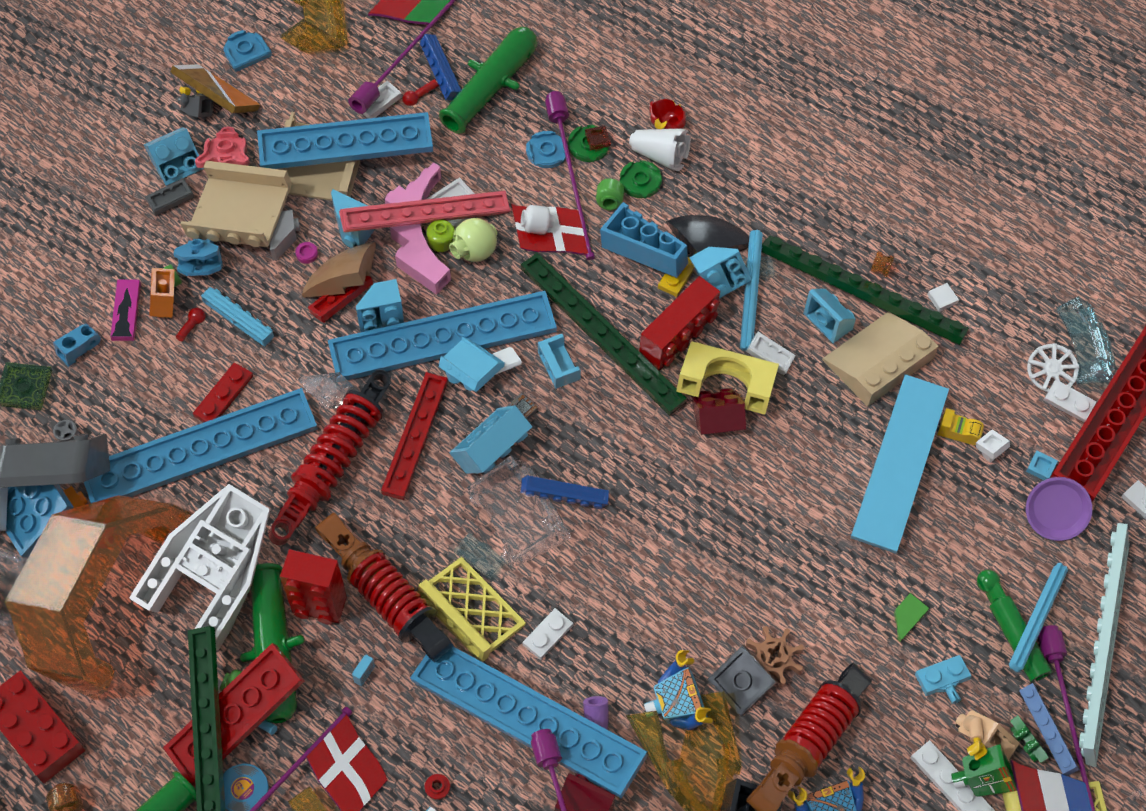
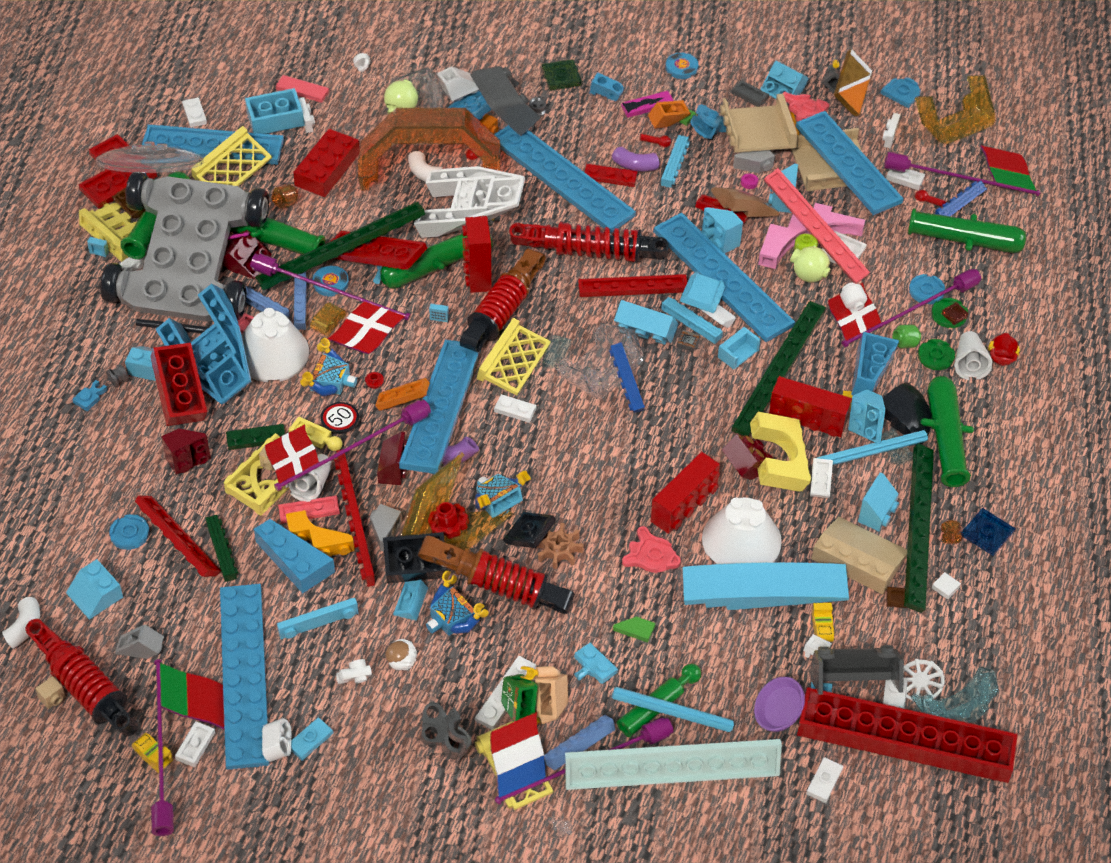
camera: 70 degrees right, 10 degrees down
(81, 249) = (681, 65): none -> dark azure tile
(112, 606) = (419, 166): none -> white cylinder
(220, 359) = (635, 161): none -> medium lavender cylinder
(309, 86) = (892, 125): none -> white plate
(327, 388) = (643, 221): clear slope -> none
(488, 758) = (402, 394): none -> orange plate
(497, 391) = (692, 320): none -> medium azure piece
(711, 756) = (448, 519): none -> red plant
(752, 209) = (948, 431): none -> green piece
(754, 493) = (685, 493): none -> red brick
(811, 561) = (651, 553): none -> coral tile
(821, 463) = (742, 534): none -> white cone
(887, 232) = (988, 531): none -> clear blue tile
(945, 348) = (895, 597): none -> reddish brown tile
(1027, 447) = (857, 665): none -> dark grey windscreen
(1032, 746) = (563, 730): green hinge -> none

